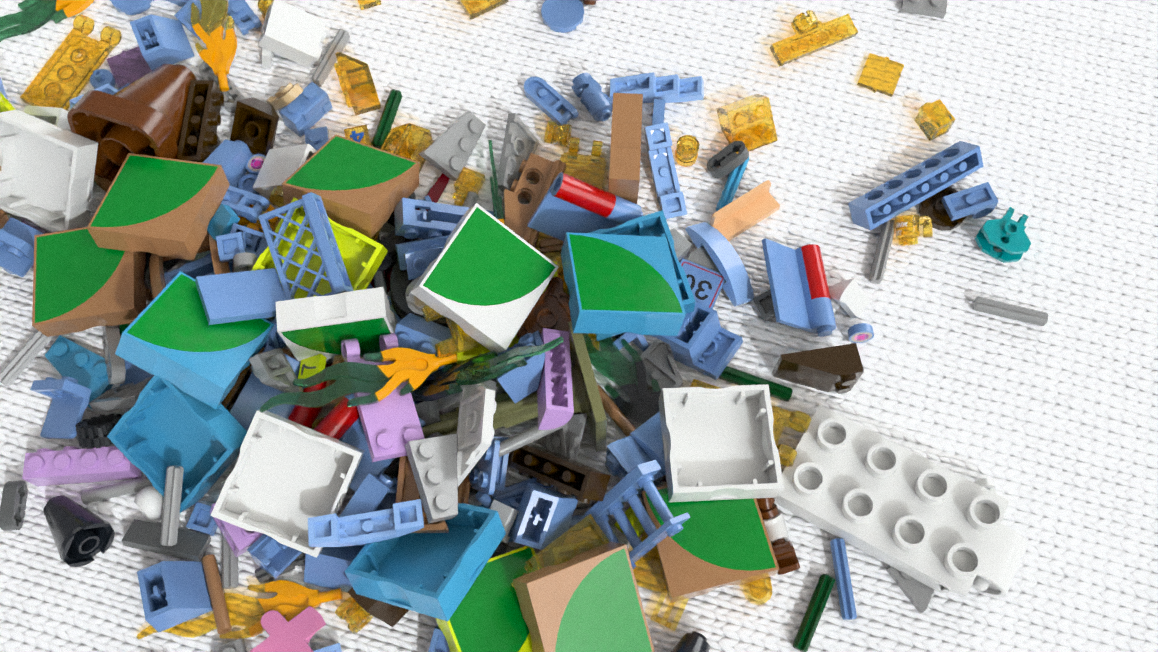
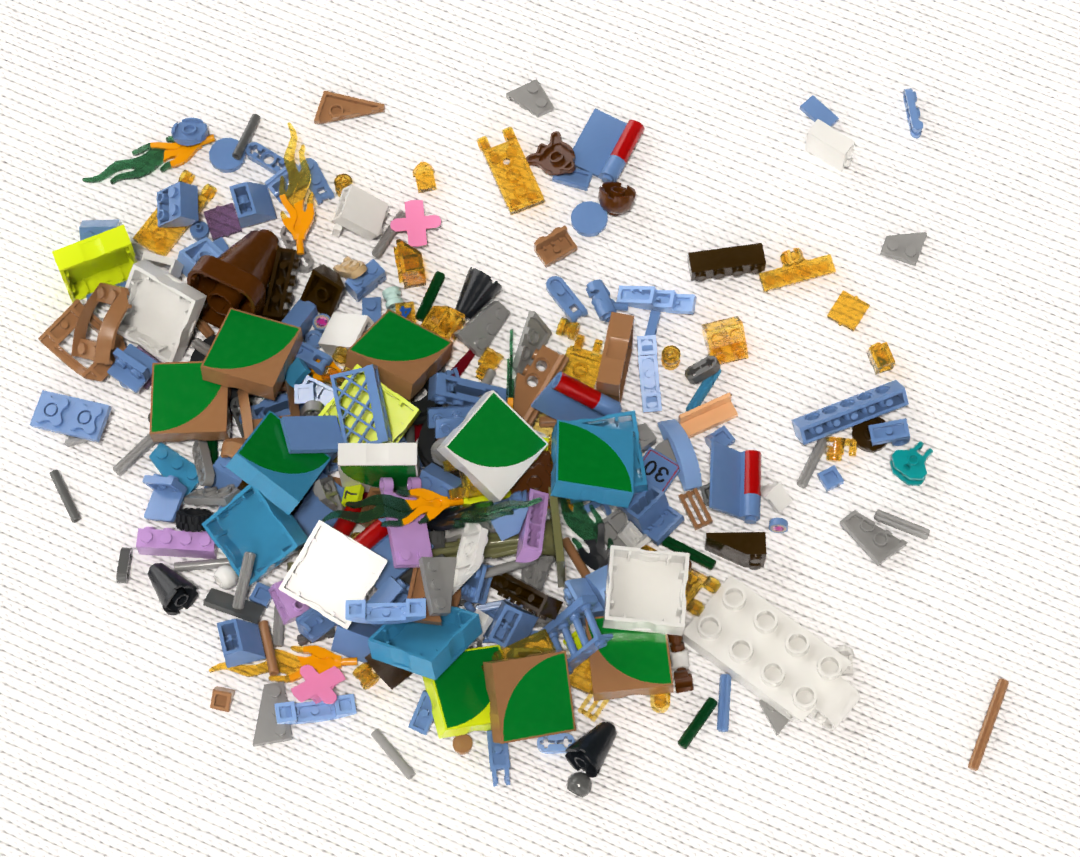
camera: 10 degrees right, 0 degrees up
(69, 51) = (177, 205): none -> medium blue slope
(339, 121) = (392, 296): none -> light aqua wheel
(359, 38) = (415, 223): none -> bright pink piece
(442, 104) = (476, 293): none -> black cone
(527, 44) = (554, 246): none -> medium nougat bracket
(682, 373) = (632, 536): none -> white tile
(731, 36) = (726, 262): none -> dark brown brick
(760, 323) = (689, 494): none -> medium nougat tile
(766, 231) = (720, 436): none -> medium blue tile
(908, 267) = (830, 478): none -> medium blue tile
(983, 336) = (872, 539): none -> light grey wing

